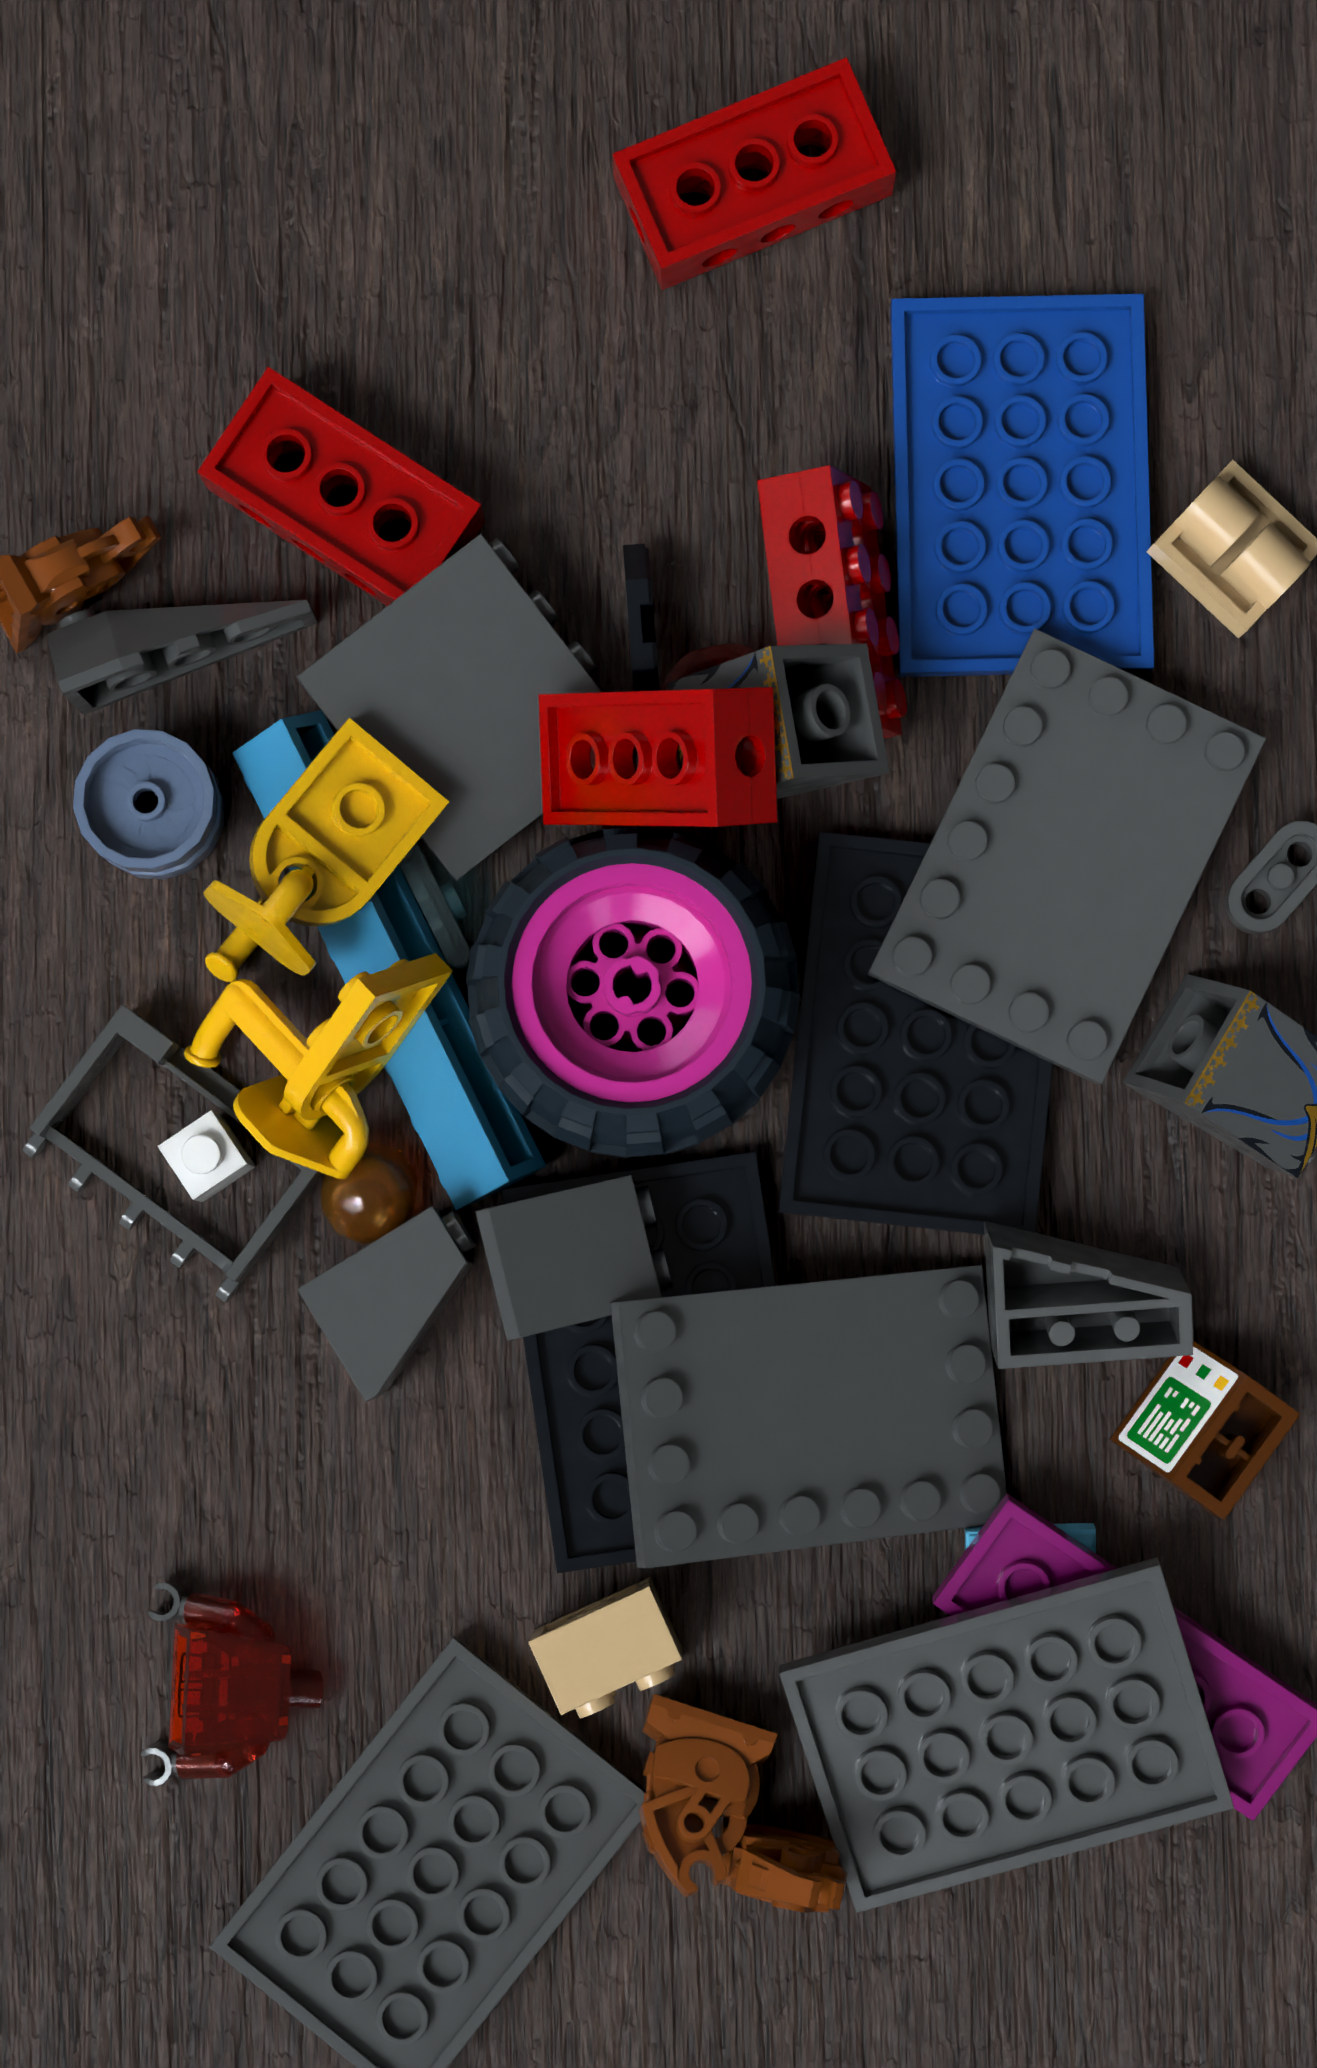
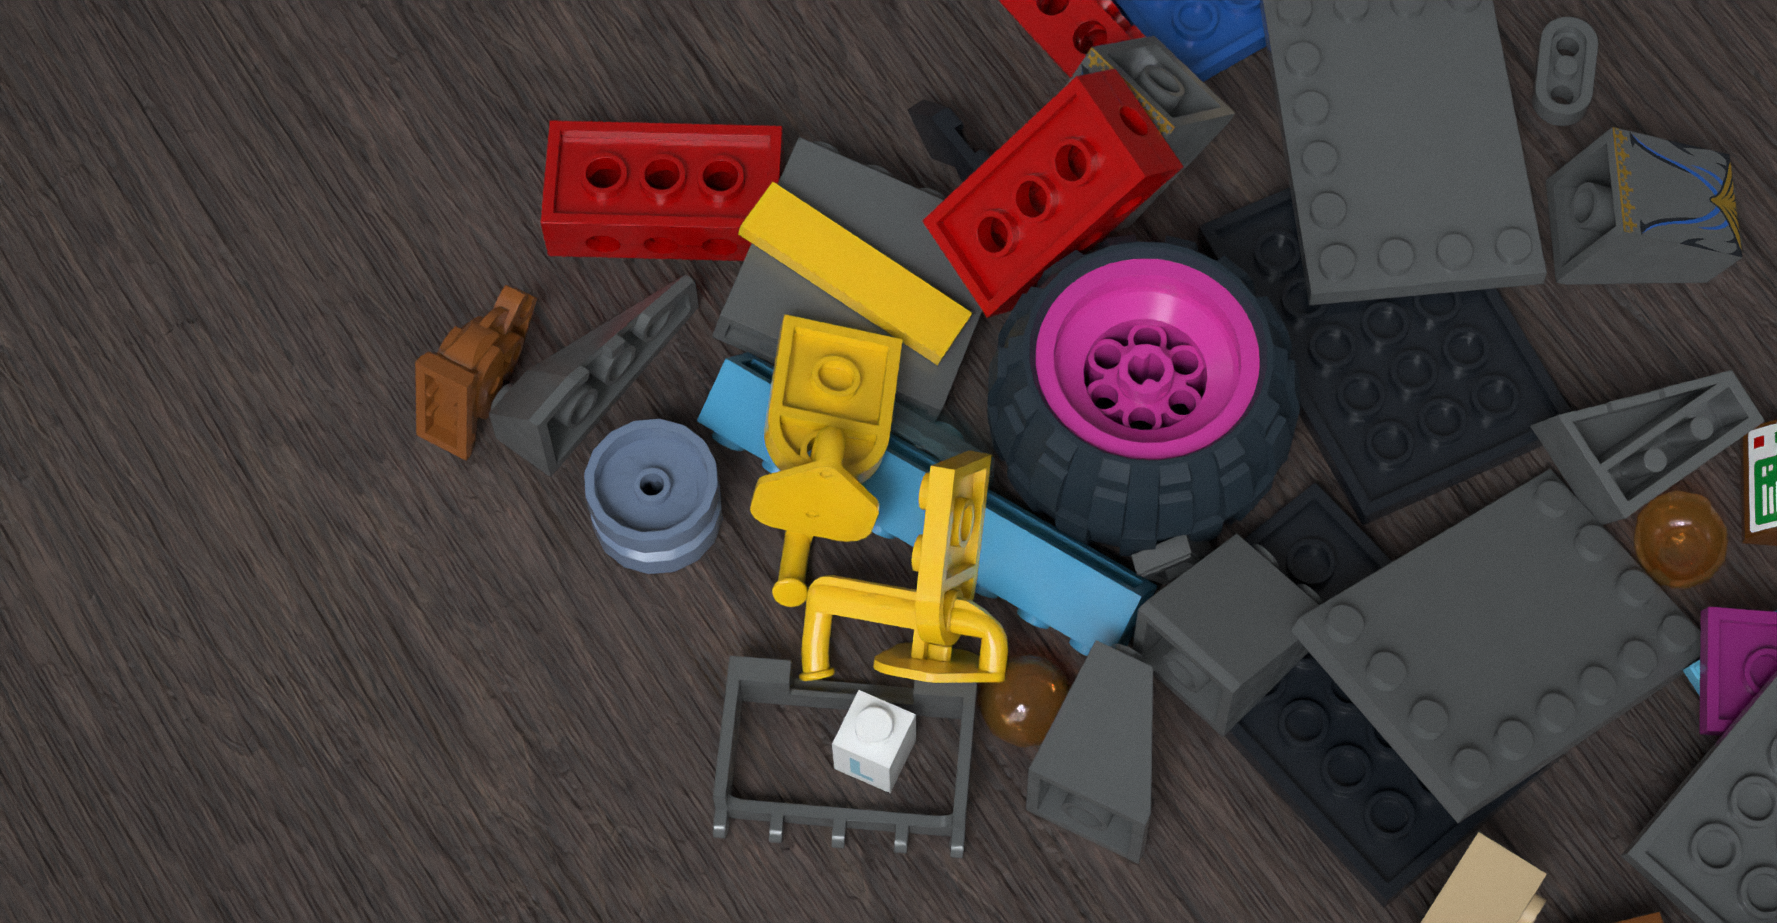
camera: 35 degrees left, 20 degrees down
(448, 705) = (854, 273): none -> yellow tile
(566, 1153) = (1170, 559): none -> dark grey tile
(1044, 1411) = (1680, 540): none -> clear orange hair

